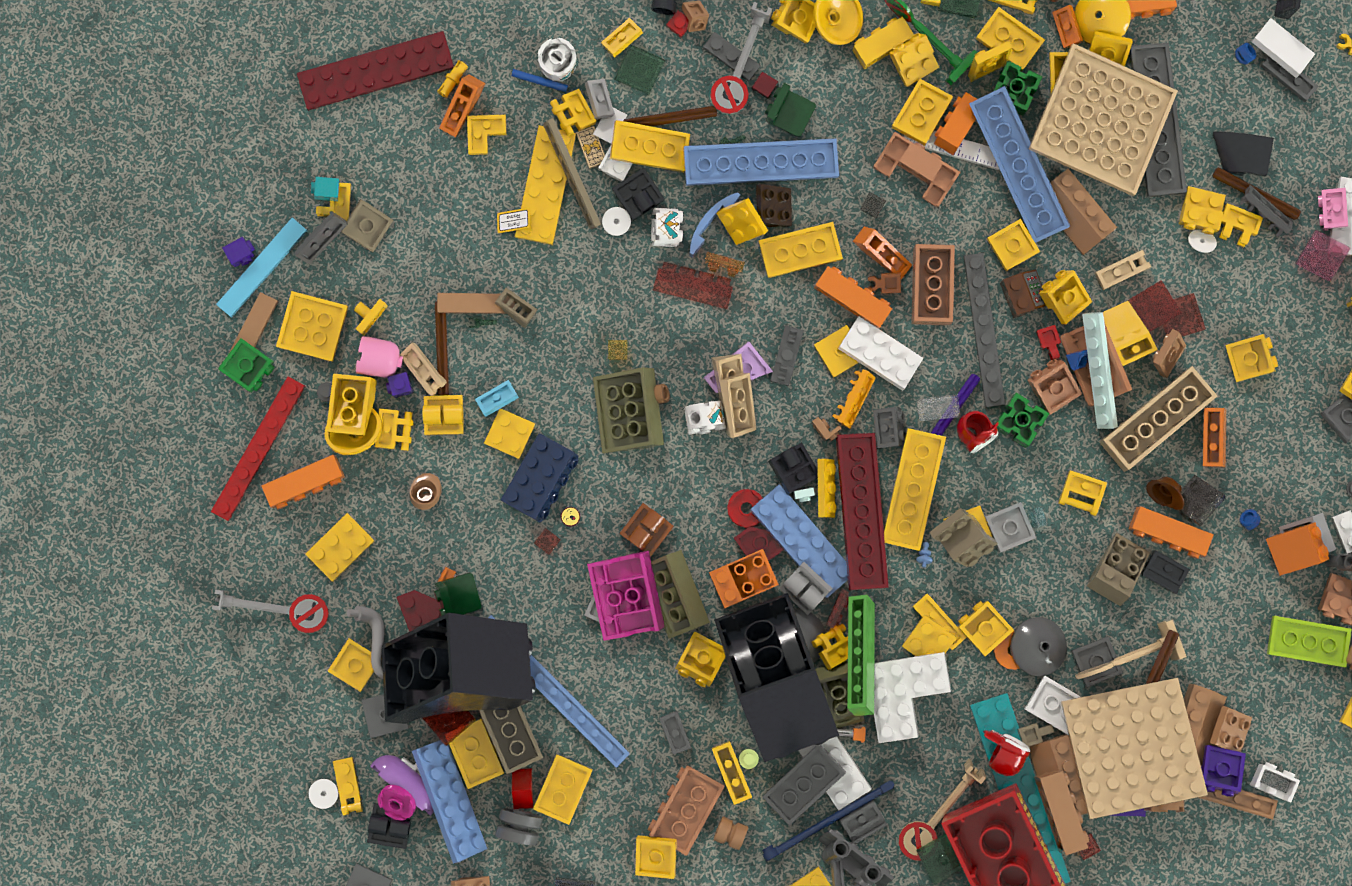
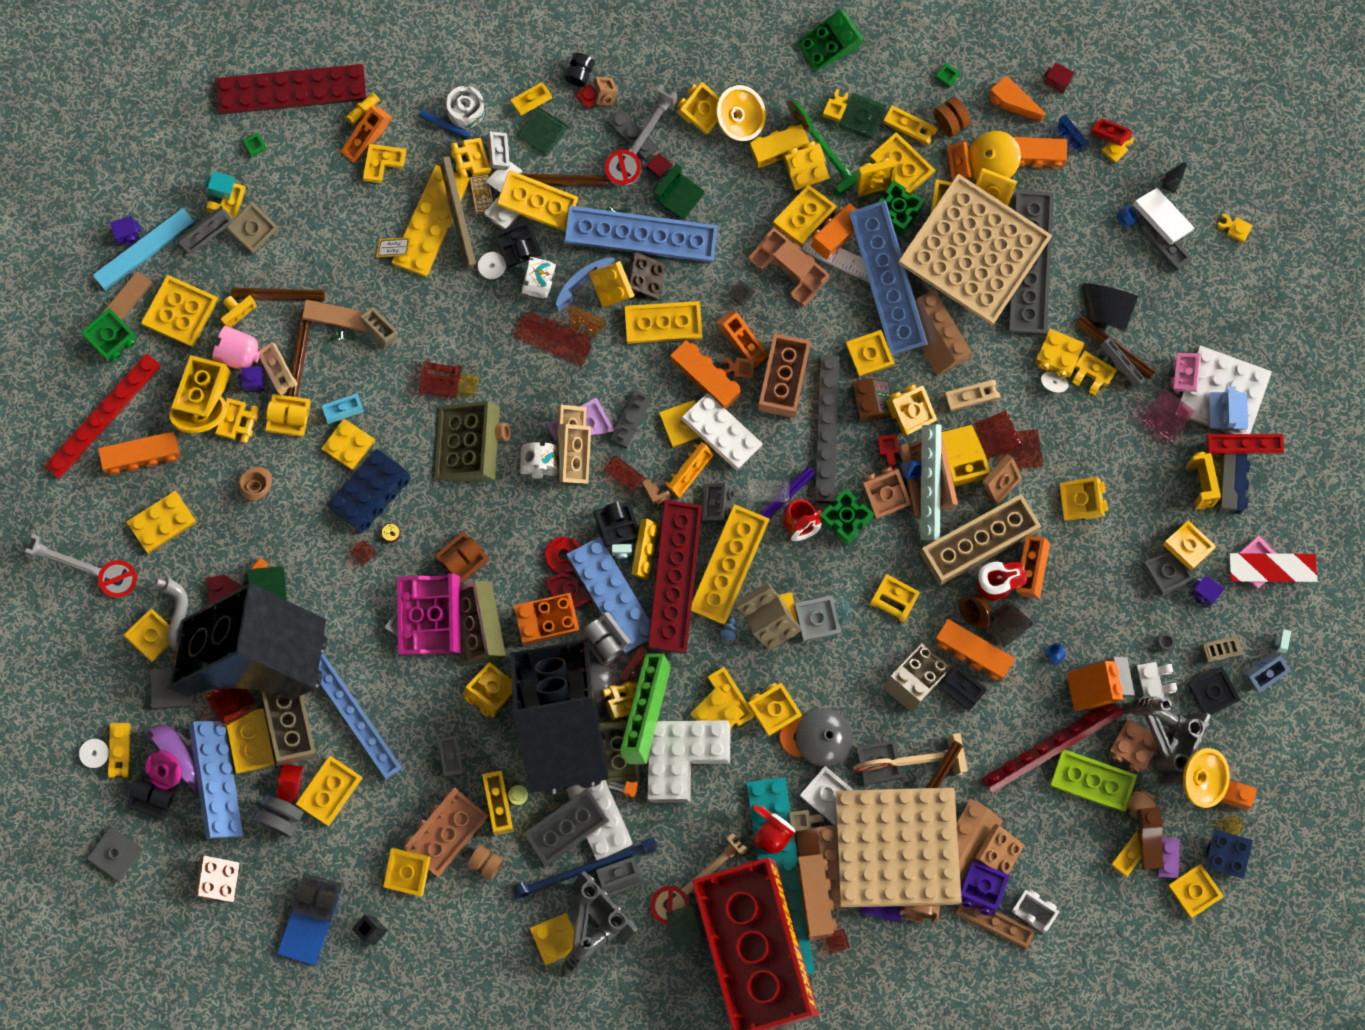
camera: 10 degrees right, 10 degrees down
(350, 136) = (254, 144): none -> green tile
(407, 290) = (278, 294): none -> reddish brown axle
(588, 355) = (440, 384): none -> clear red plate
(791, 414) = (624, 474): none -> clear red tile
(1175, 462) = (990, 580): none -> red piece
(1261, 616) = (1050, 747): none -> dark red plate

